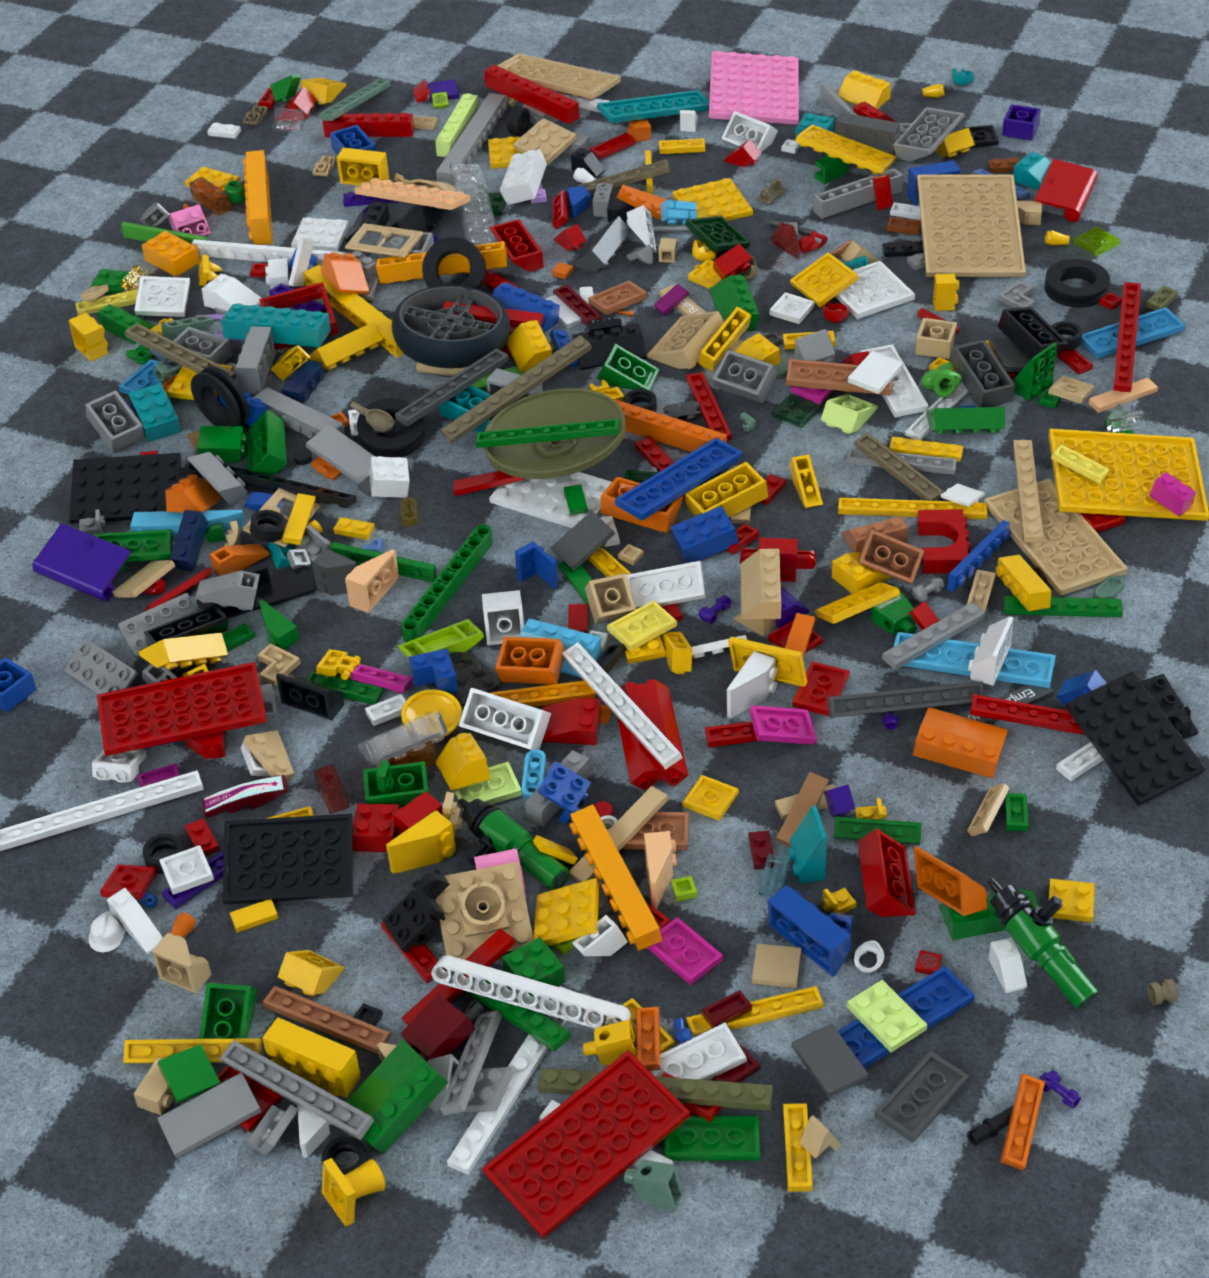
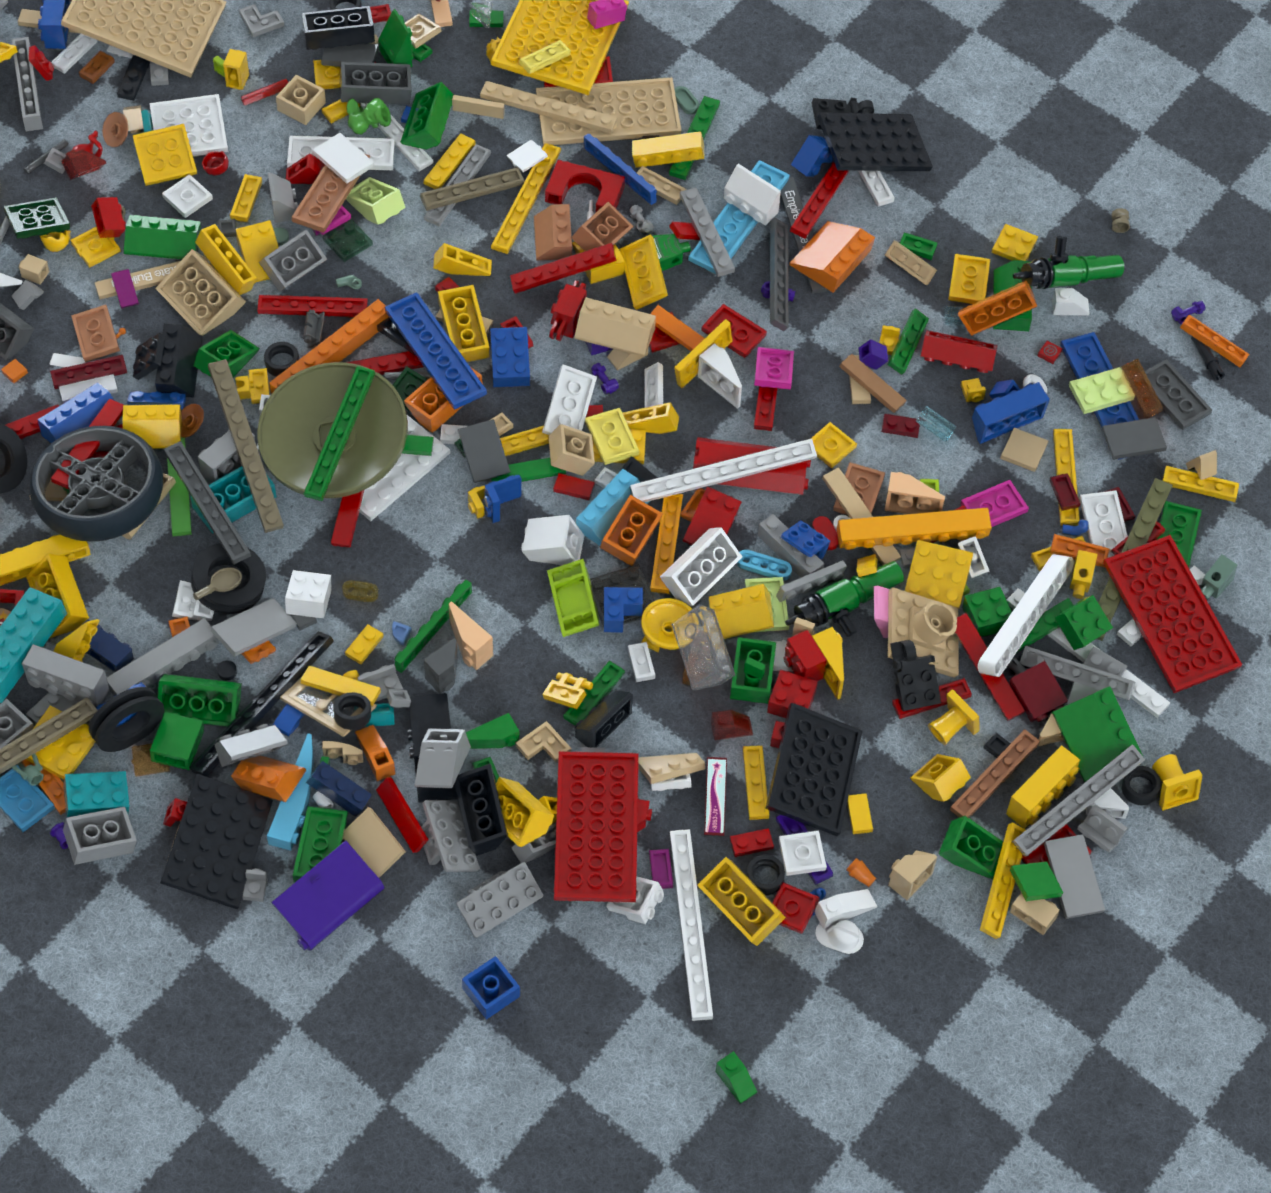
camera: 80 degrees left, 15 degrees up
(121, 834) = (741, 901): none -> yellow brick
(382, 678) = (598, 657): dark pink plate -> none
(386, 966) = (959, 715): none -> yellow plant
(447, 583) = (490, 584): green beam -> none
(518, 808) = (810, 581): none -> light grey plate
(534, 1047) = (1083, 622): none -> green brick
(809, 849) = (927, 385): teal slope -> none
(827, 543) = (563, 268): none -> red plate
(903, 1051) = (1142, 388): none -> clear orange brick
(1002, 448) = (478, 106): none -> tan tile
(1002, 863) = (969, 279): none -> yellow plate

